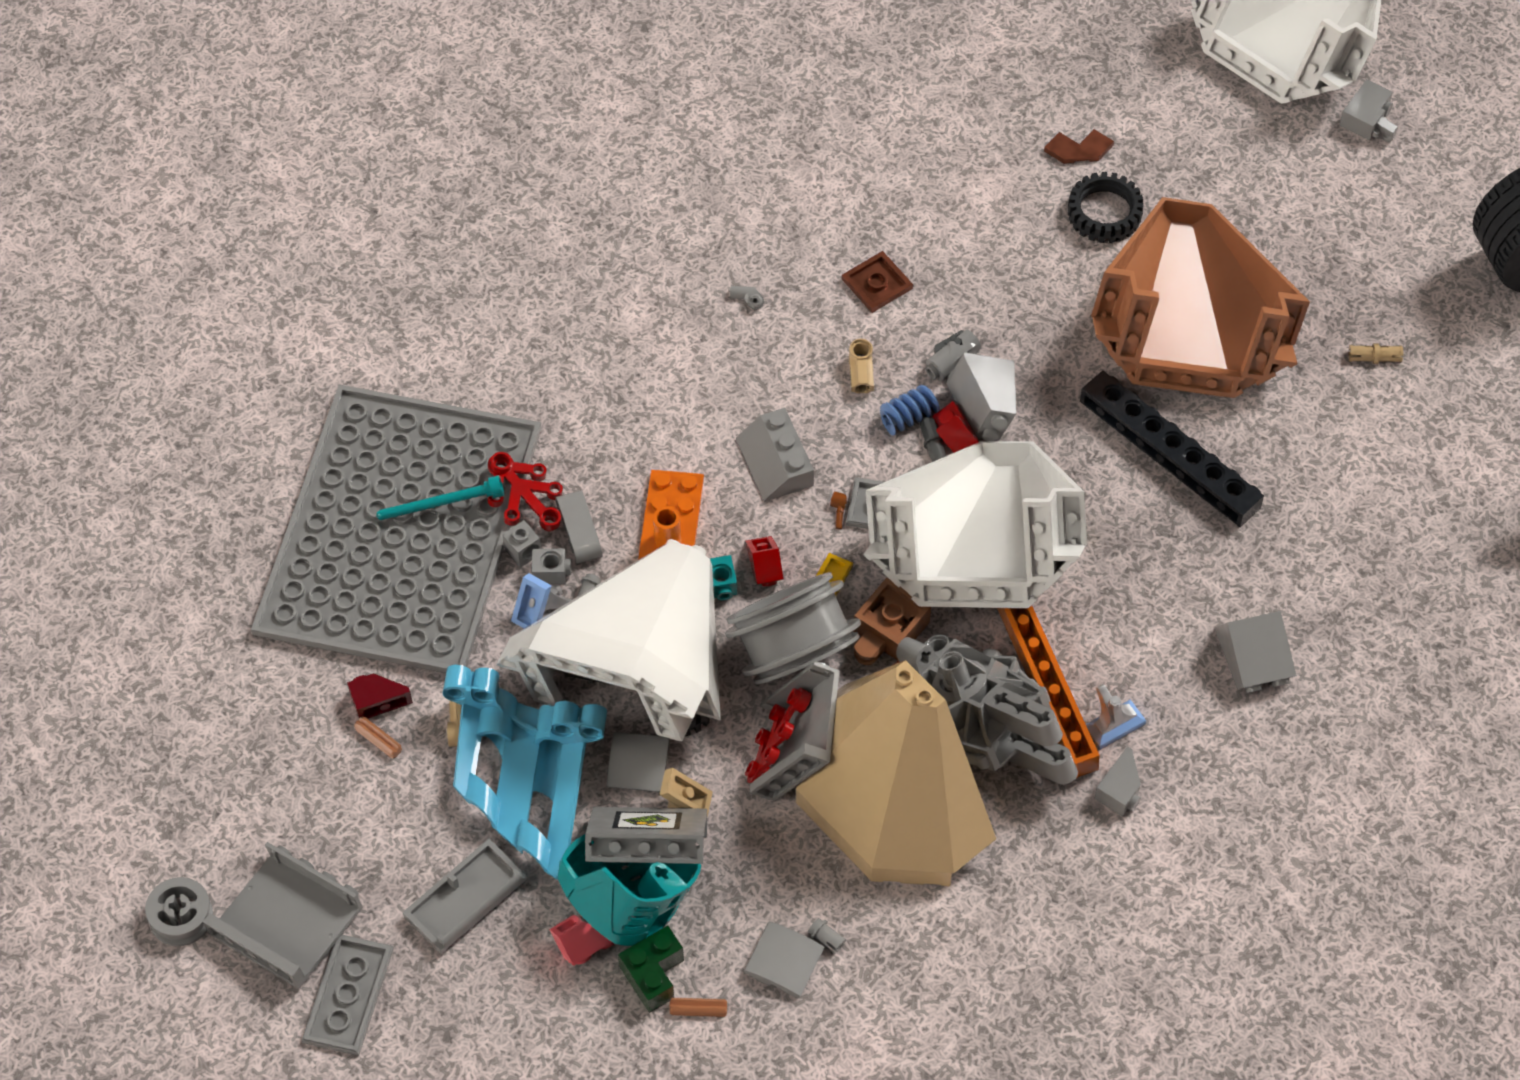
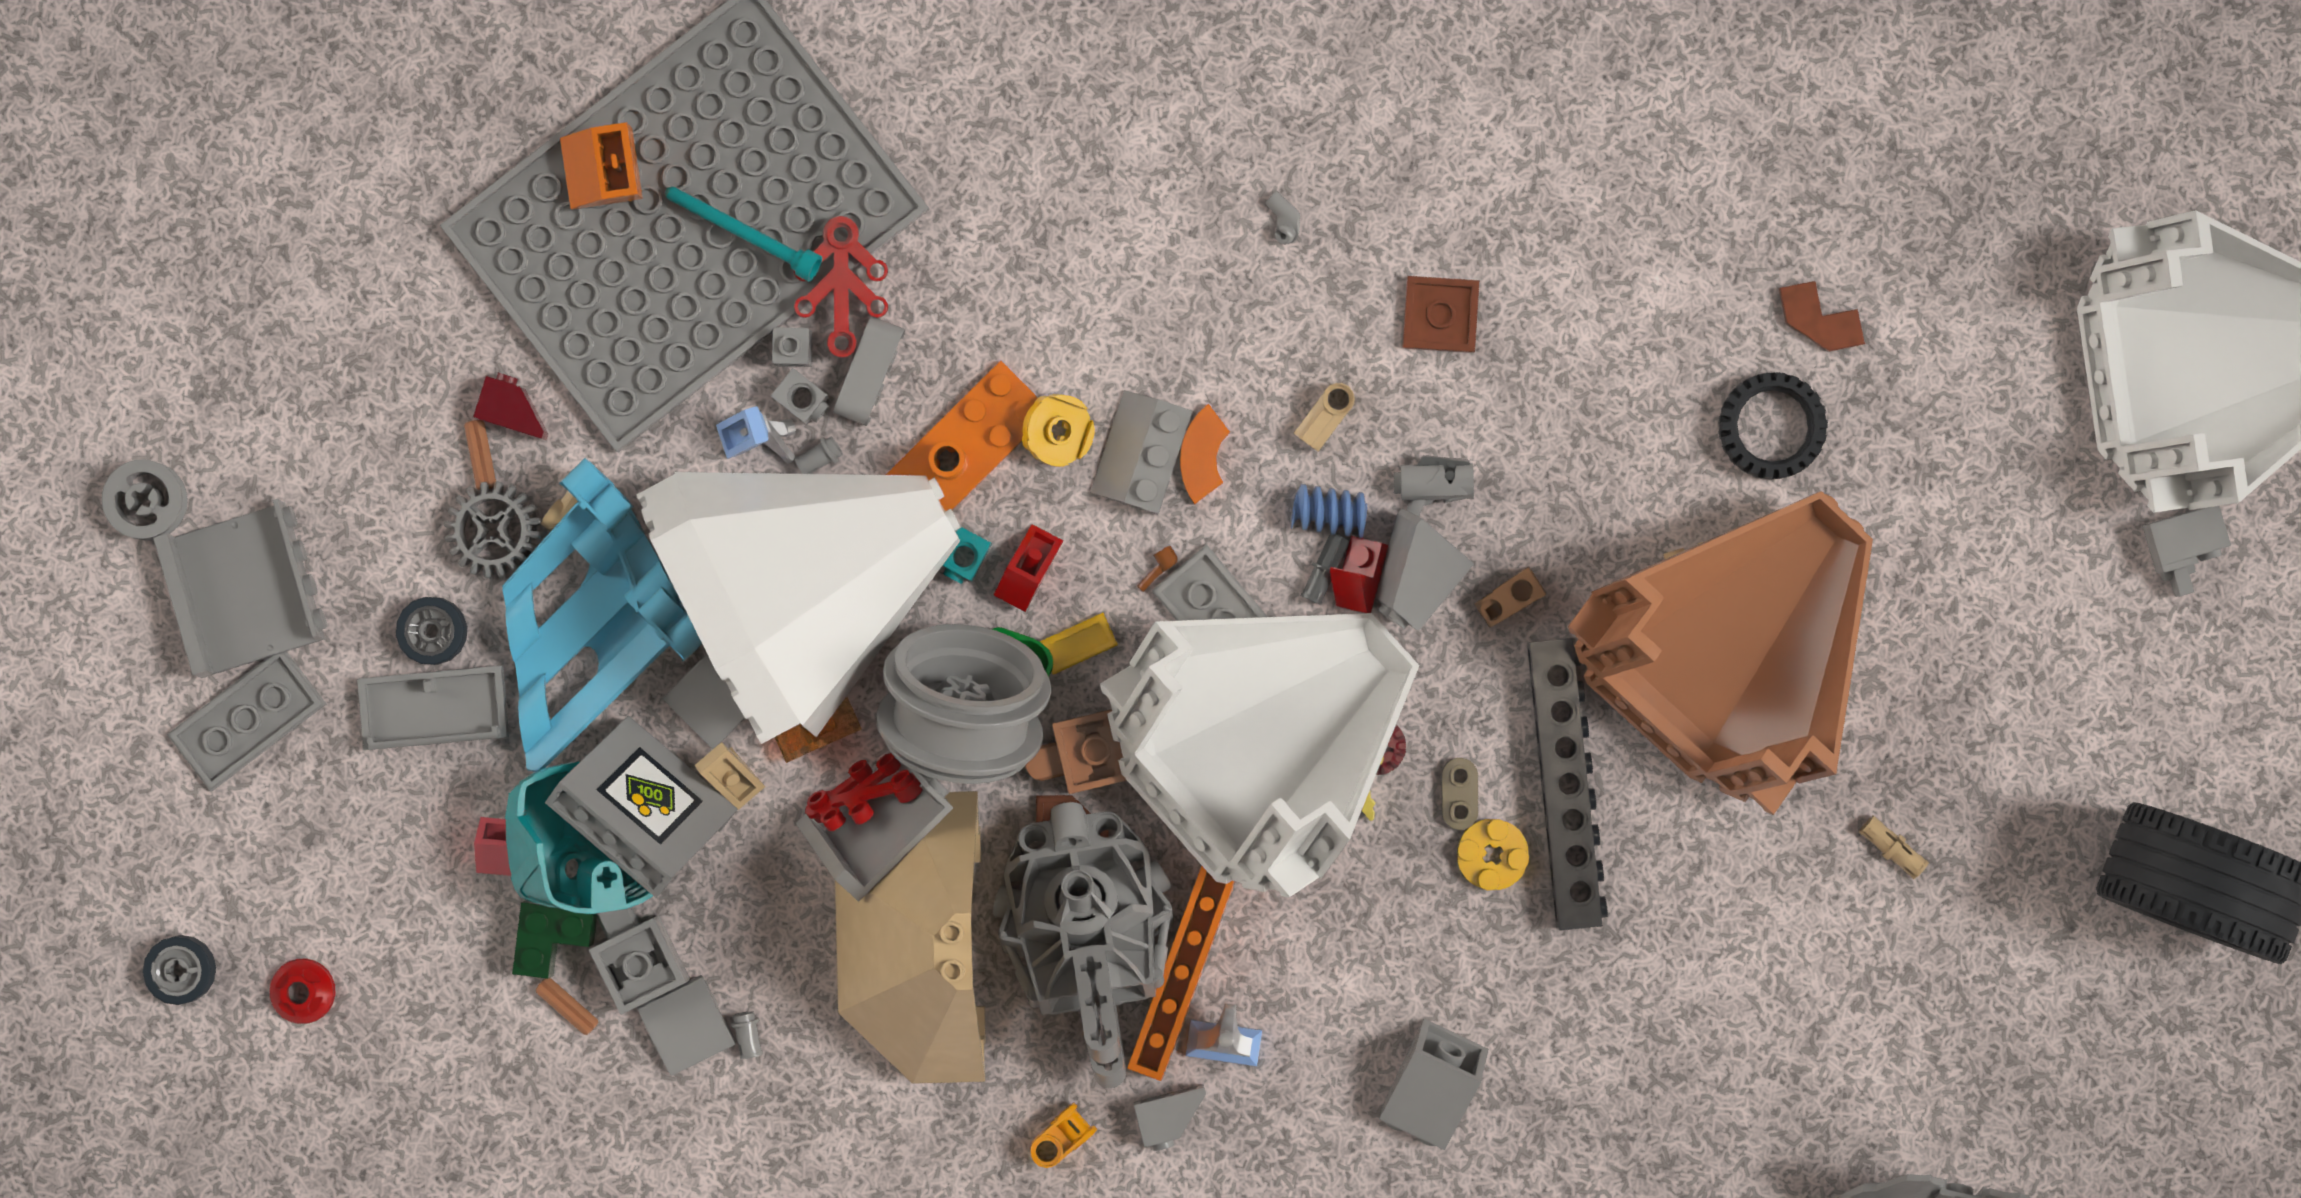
camera: 45 degrees right, 30 degrees up
(327, 522) = (601, 166): none -> orange slope
(399, 763) = (505, 518): none -> light grey gear
(422, 840) = (414, 623): none -> wheel
(708, 484) = (1038, 426): none -> yellow plate
(714, 735) = (800, 742): none -> clear orange slope
(716, 929) = (636, 959): none -> light grey brick
(815, 444) = (1199, 454): none -> orange tile
(1049, 380) = (1510, 597): none -> medium nougat leg
(1070, 843) = (1063, 1135): none -> light orange piece
(1117, 497) = (1459, 793): none -> dark tan plate
(1164, 500) = (1491, 875): none -> yellow plate

